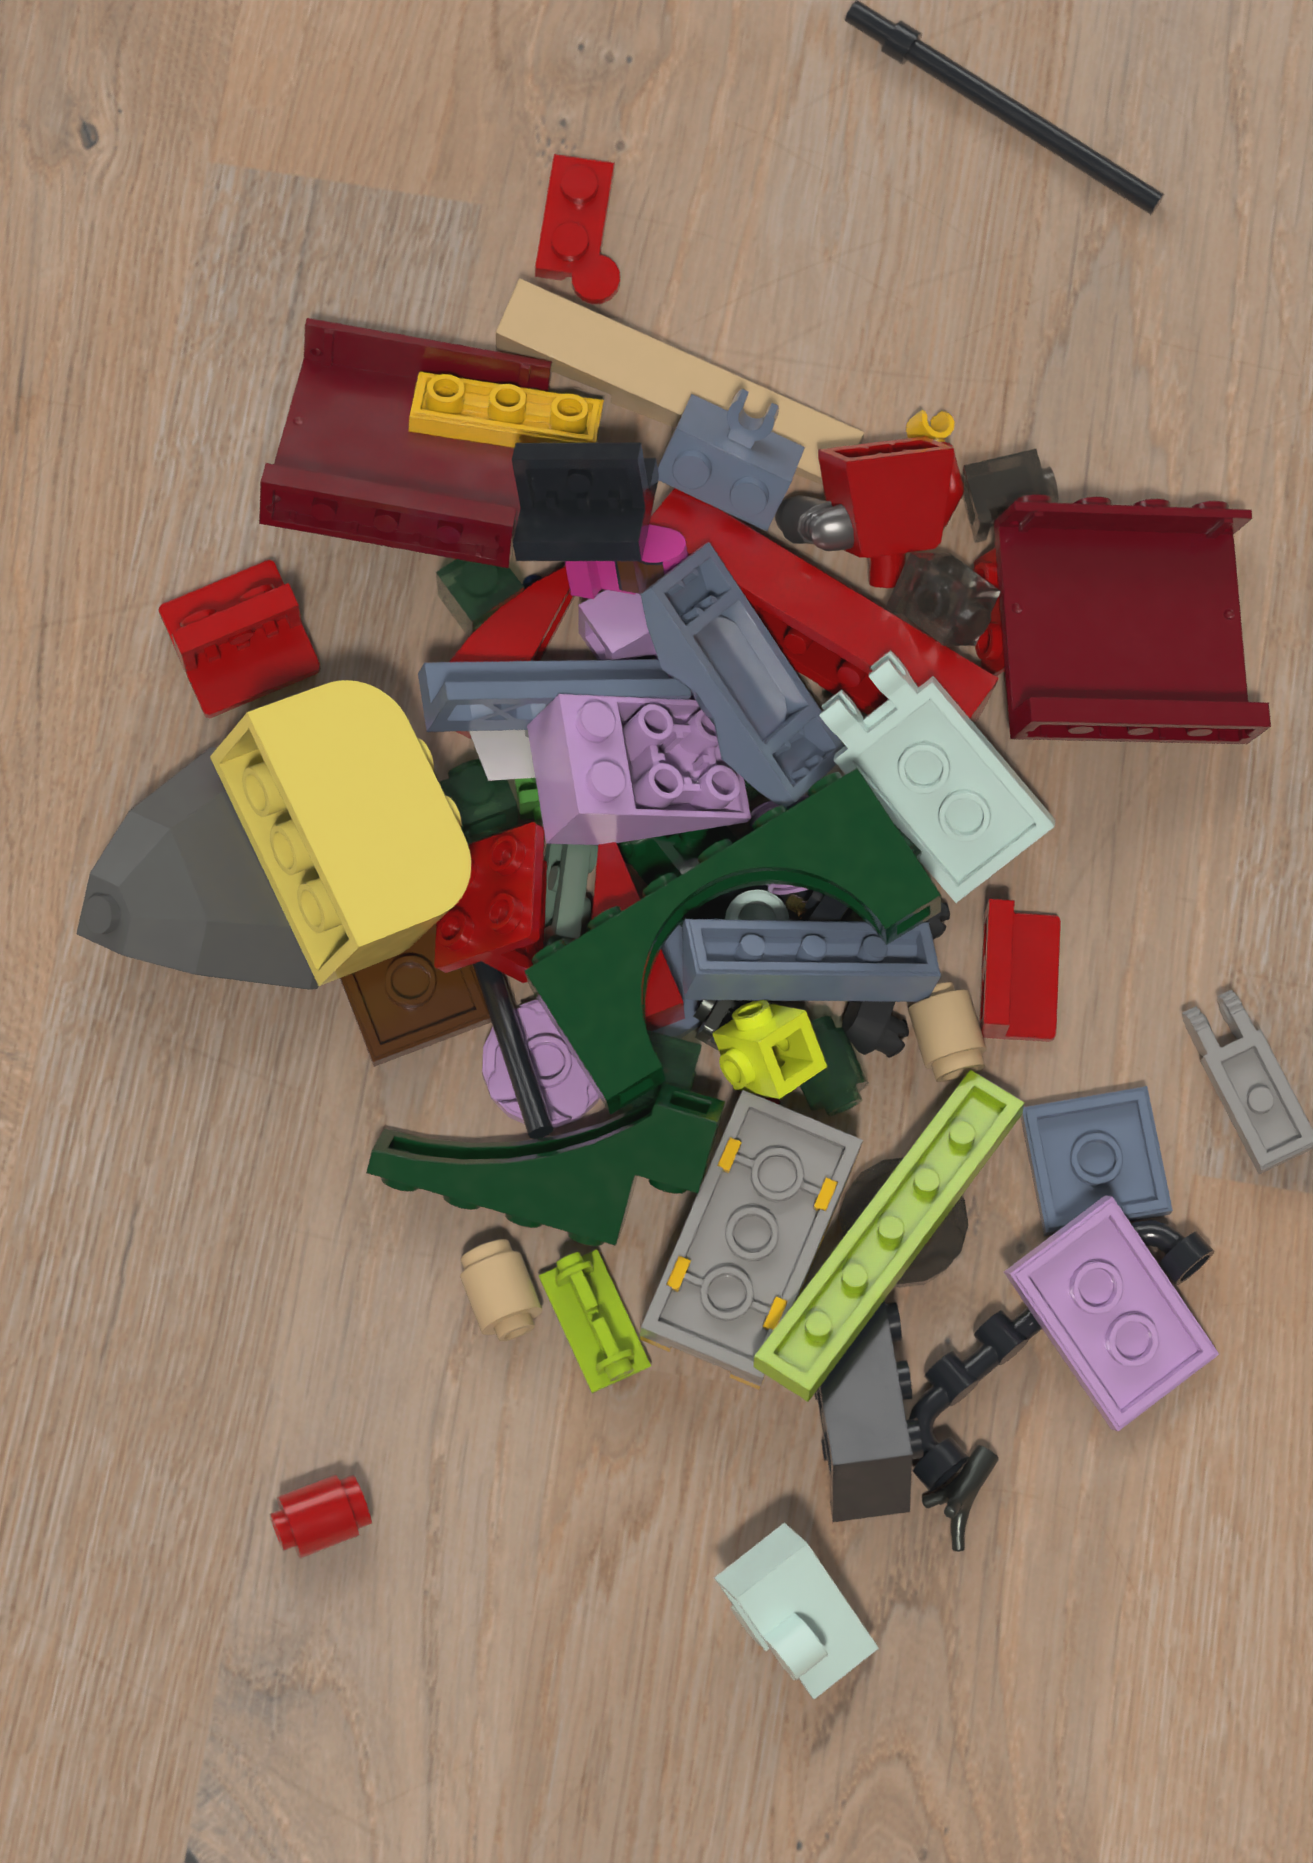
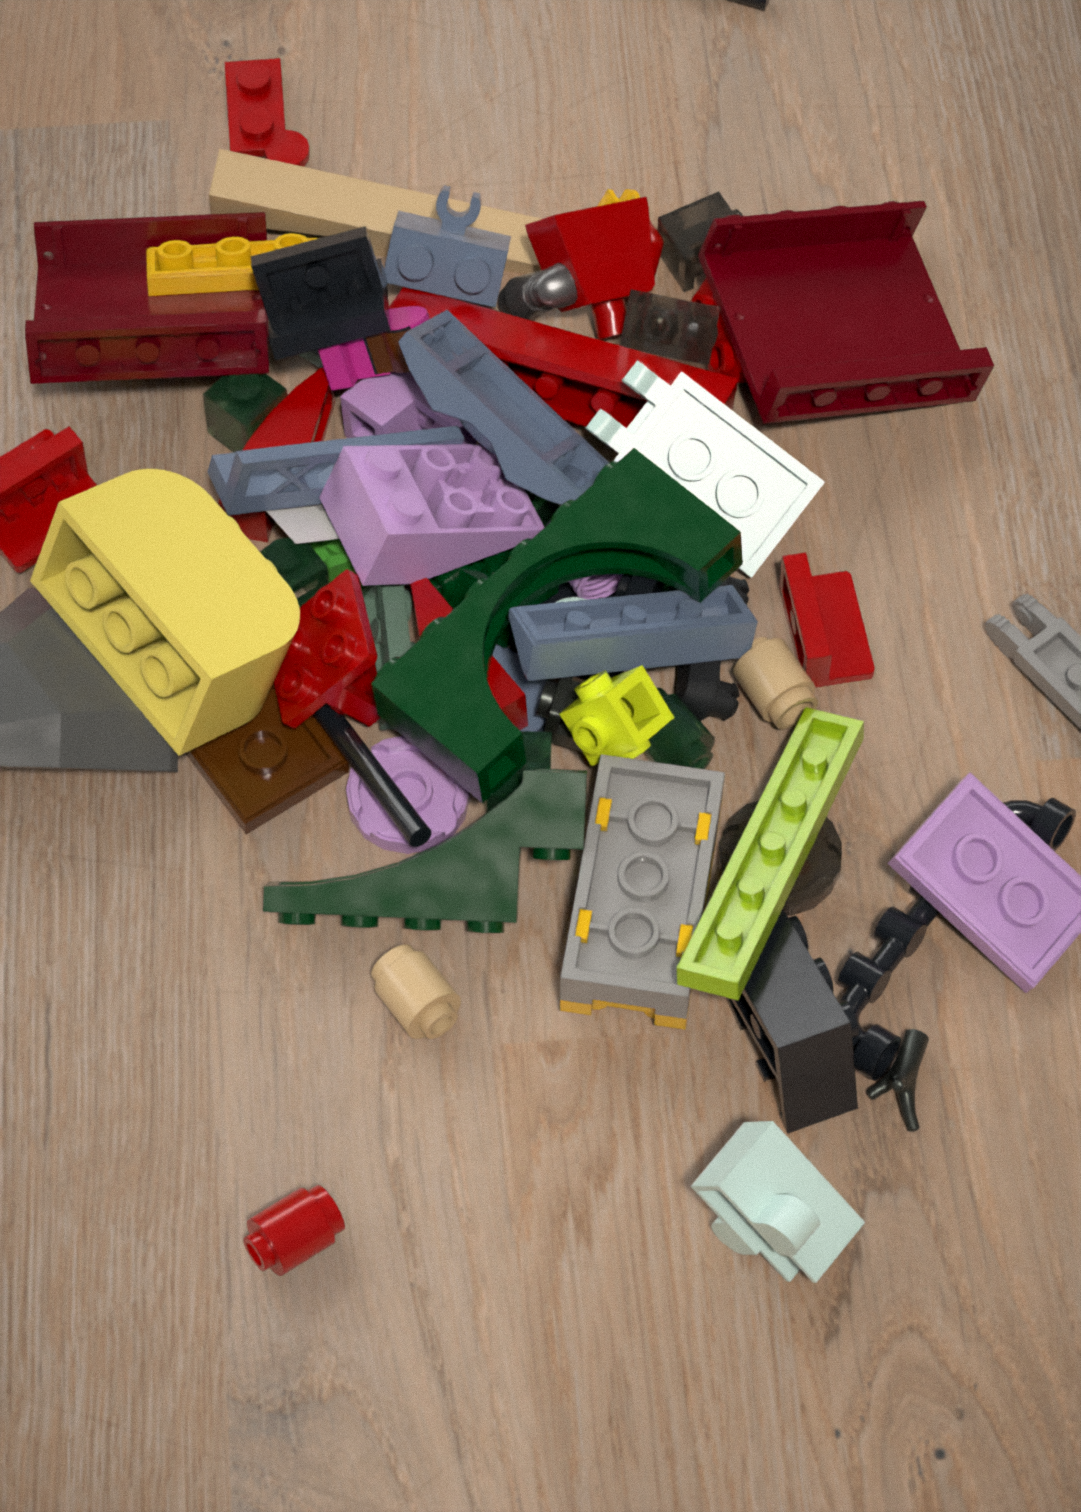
camera: 10 degrees left, 15 degrees down
(594, 1320) = (511, 1001): lime hinge -> none
(1095, 1150) = (932, 751): sand blue tile -> none

